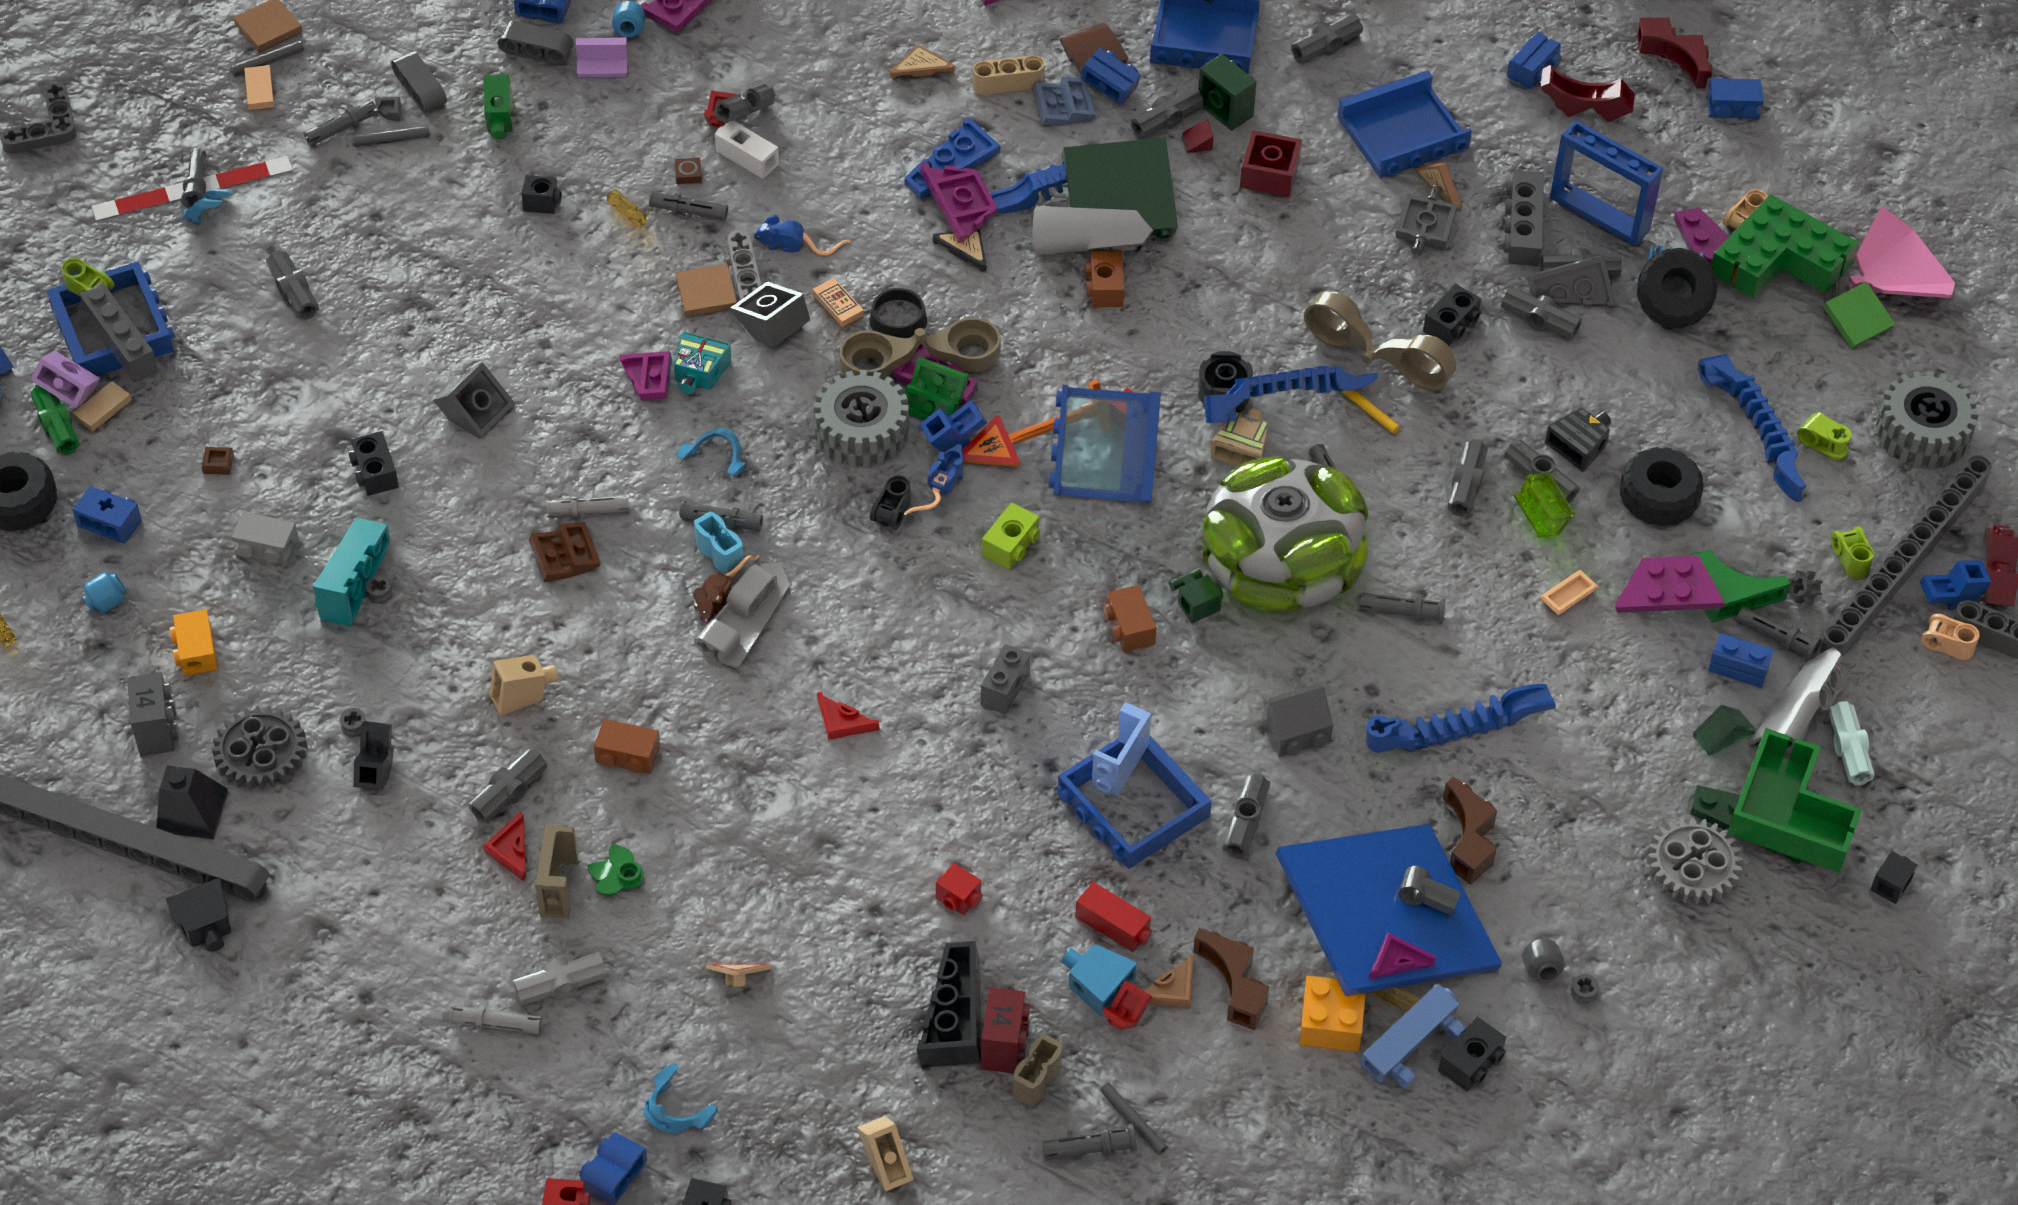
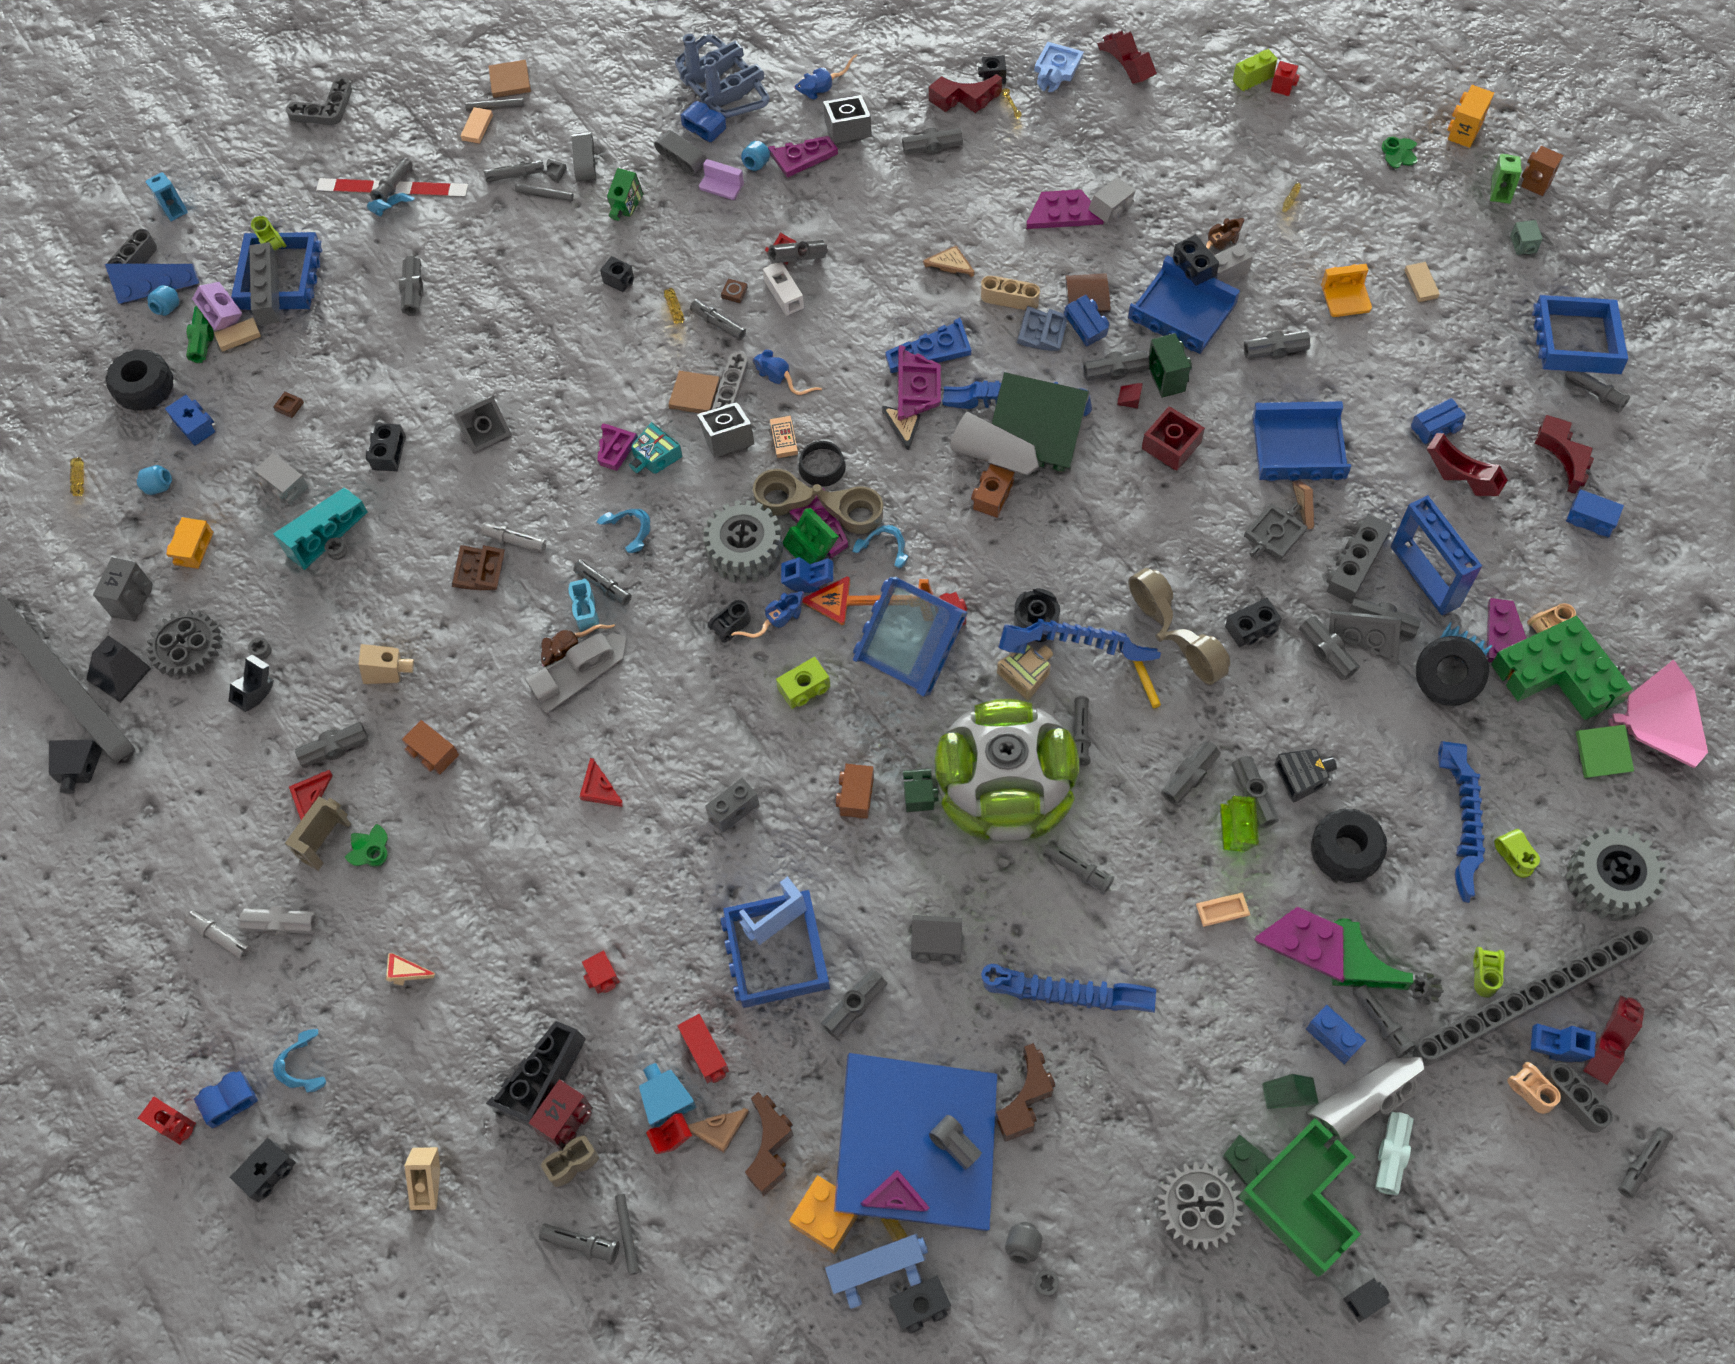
camera: 30 degrees right, 10 degrees up
(991, 381) = (901, 558): none -> dark azure helmet

